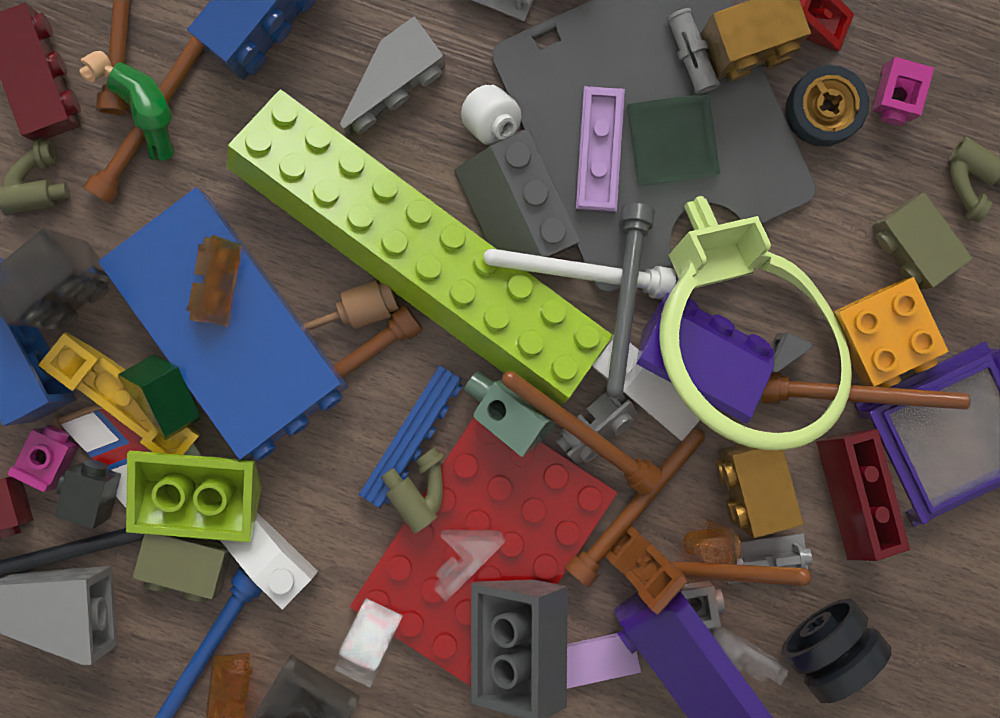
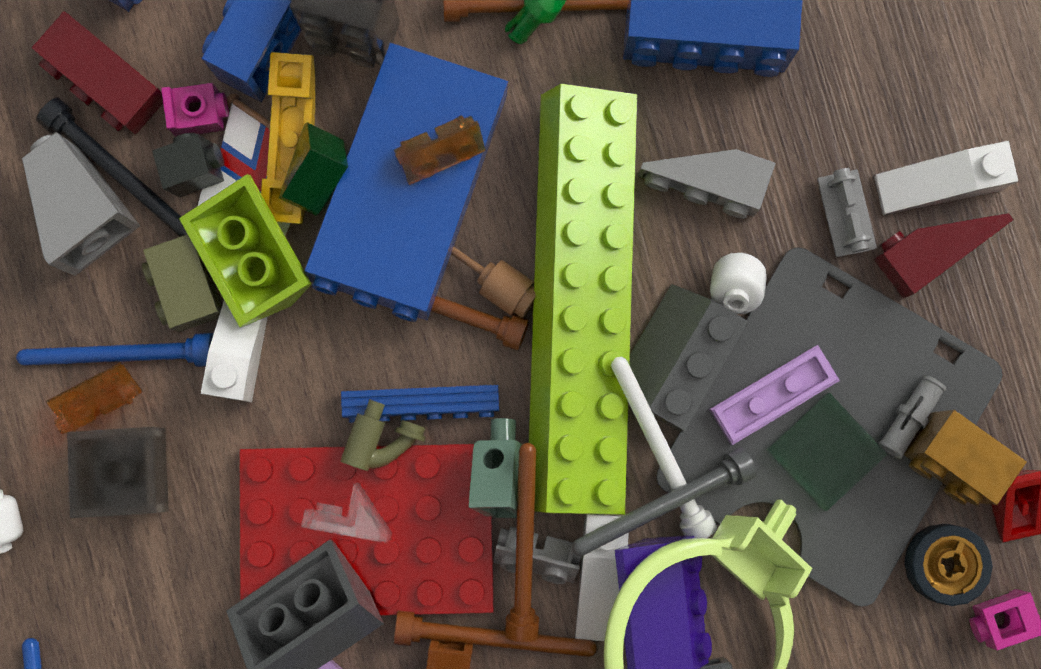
camera: 60 degrees right, 5 degrees down
(367, 642) = (219, 485): clear slope -> none

